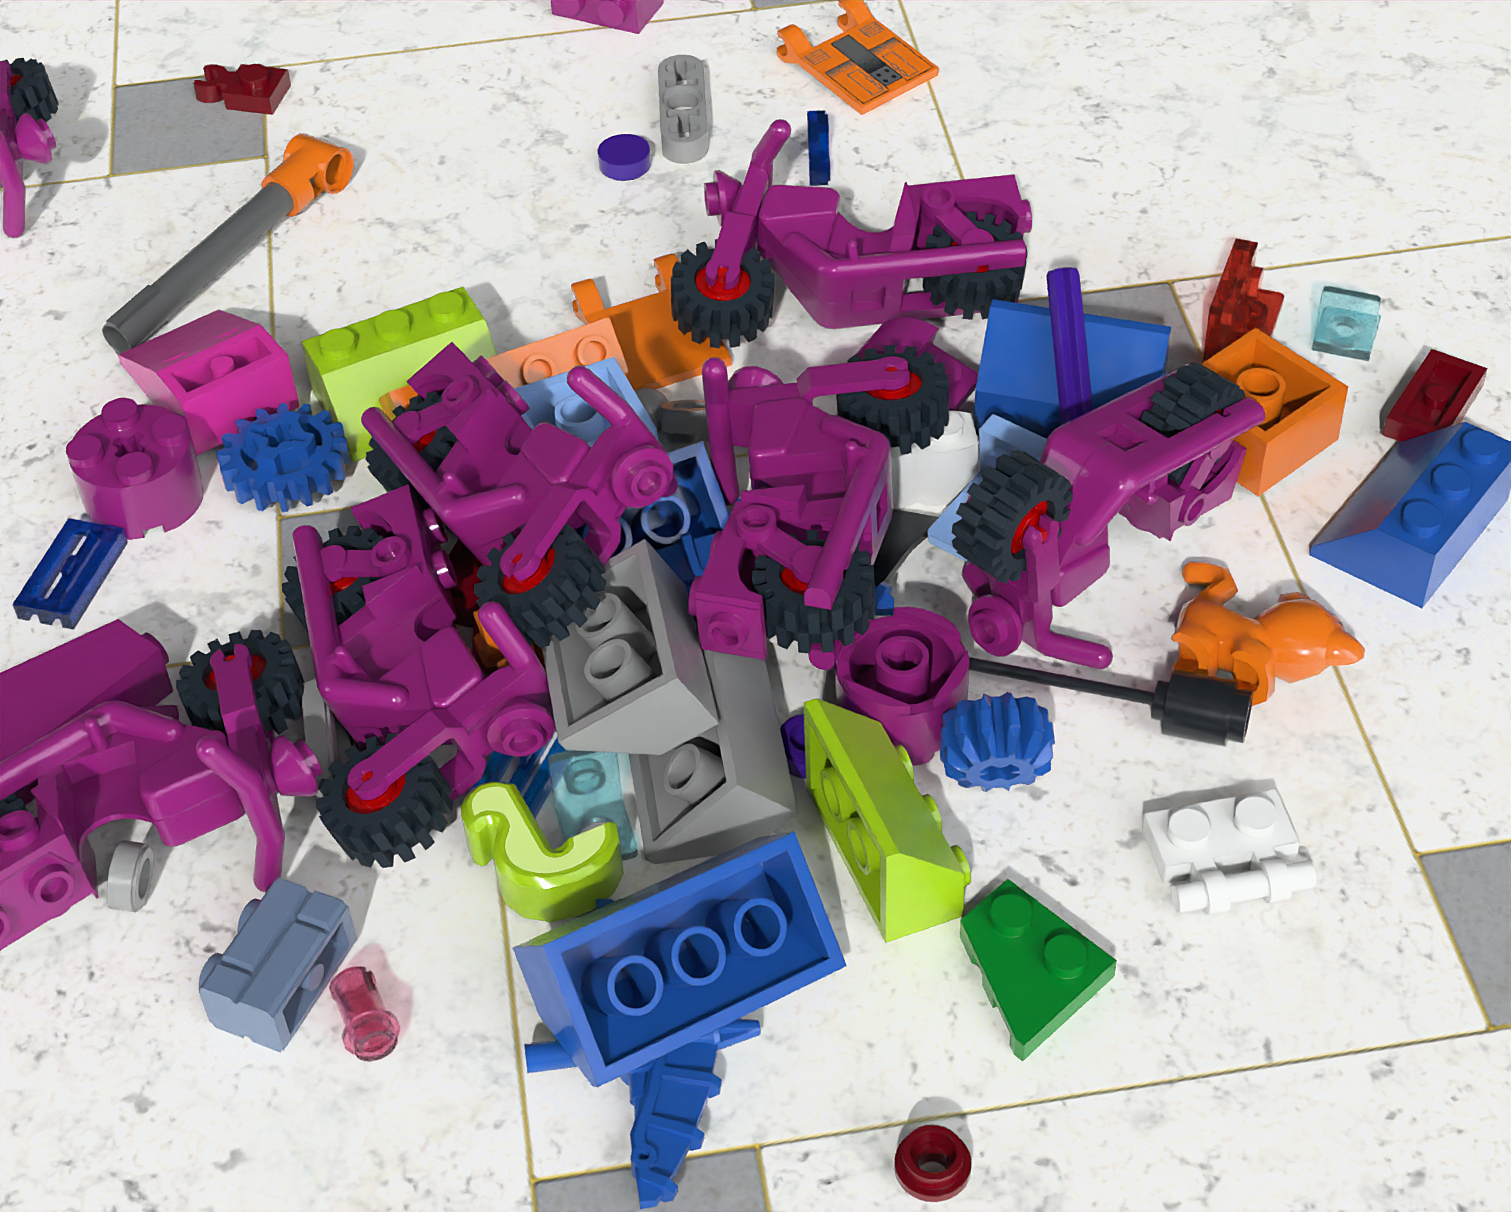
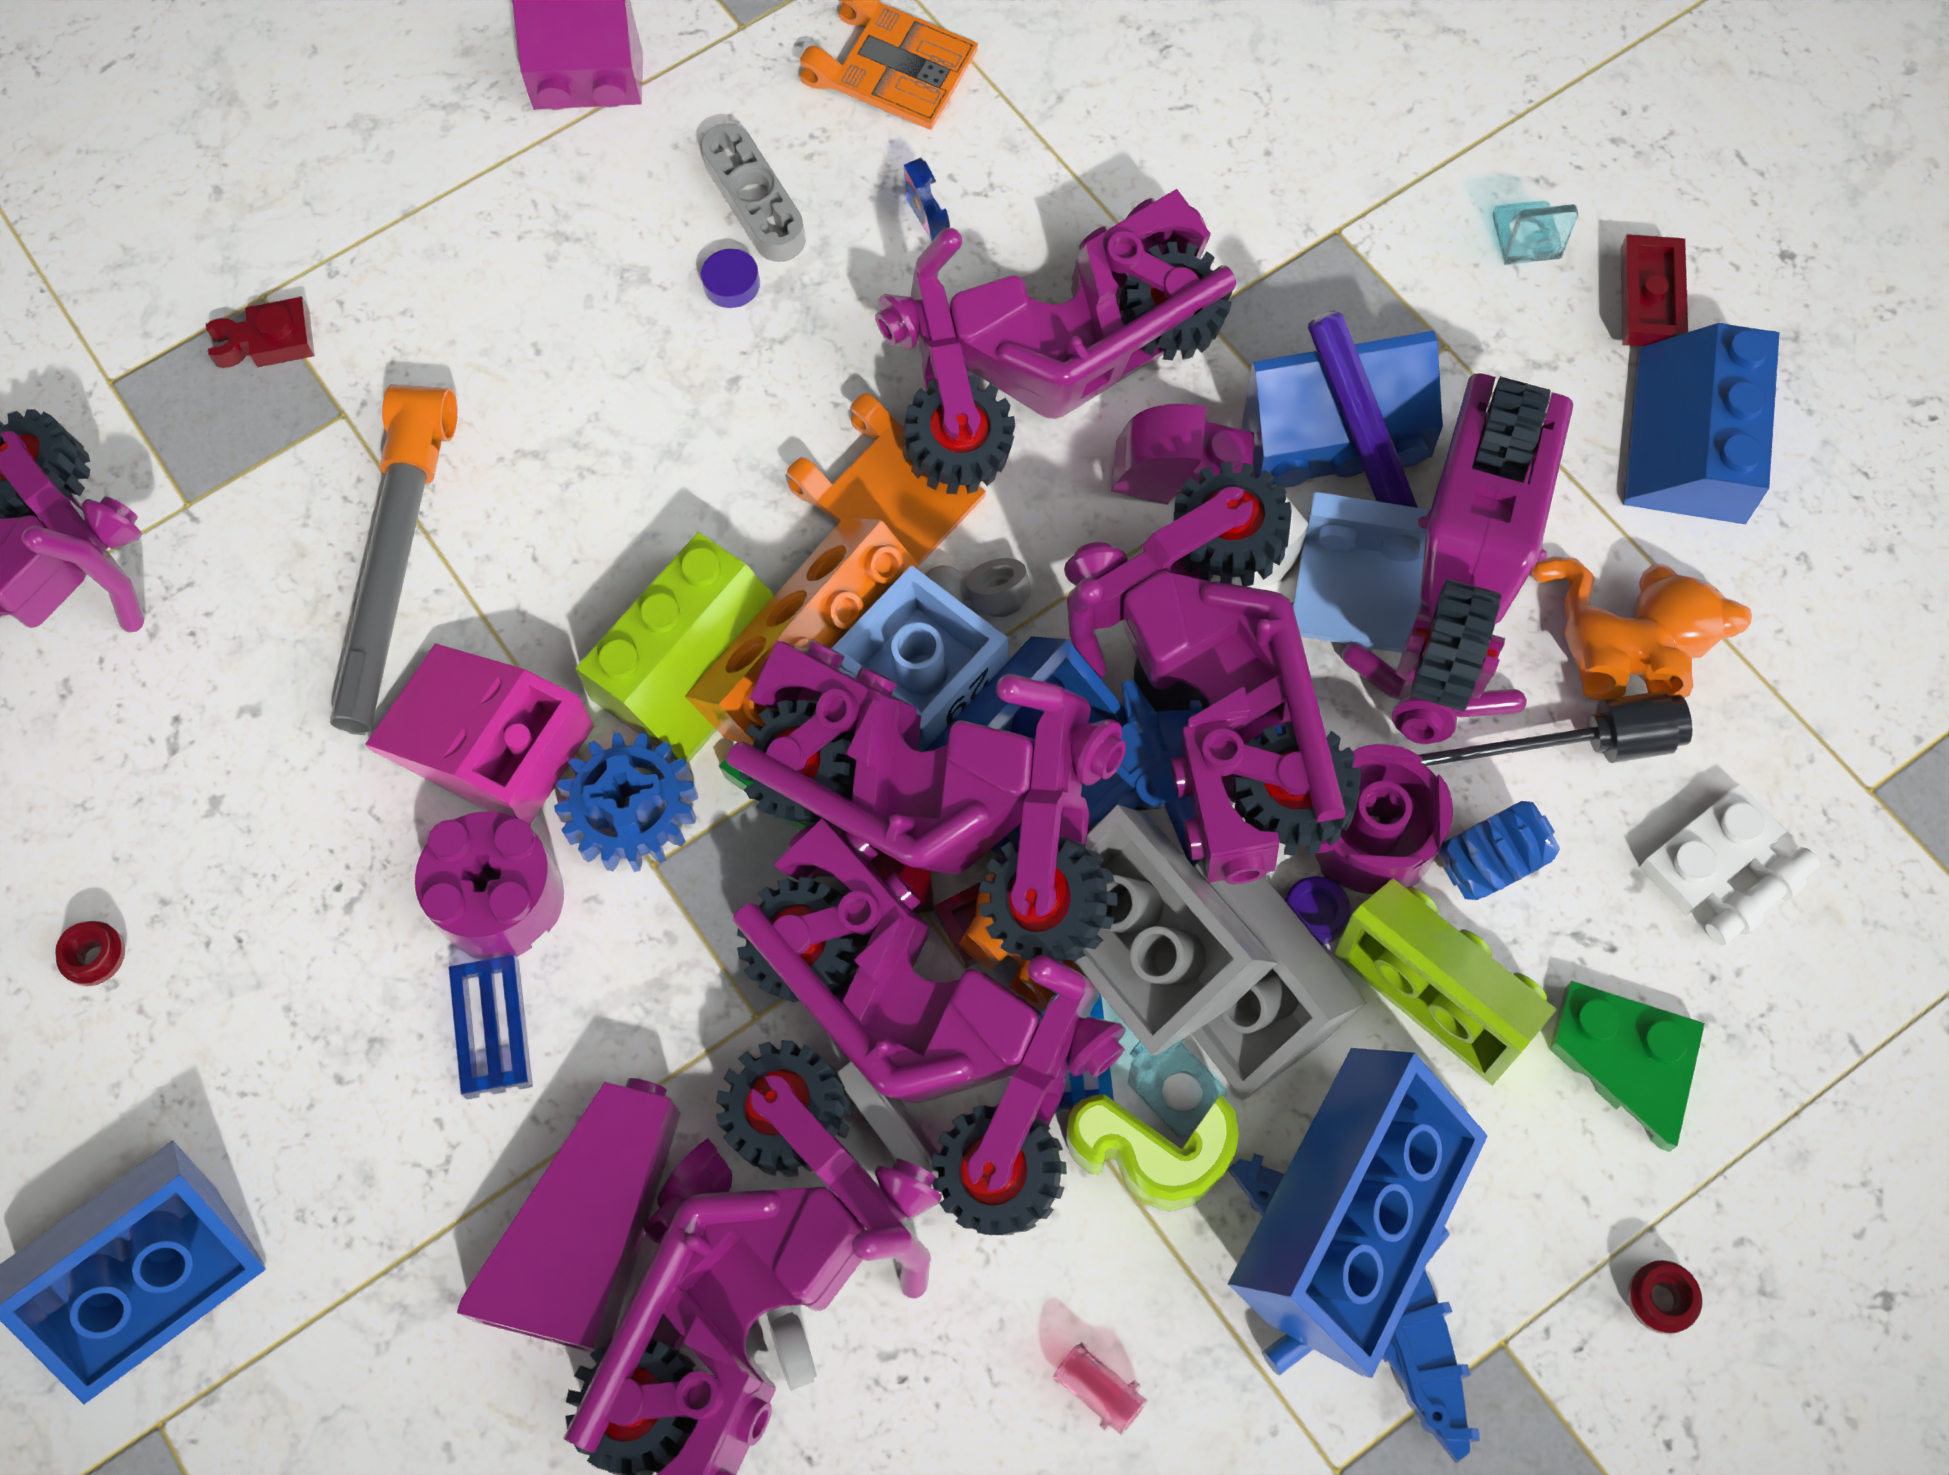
camera: 25 degrees left, 20 degrees up
(276, 963) = (992, 1378): sand blue brick -> none
(1240, 301) = (1439, 257): clear red bracket -> none
(1299, 405) = (1525, 345): orange brick -> none

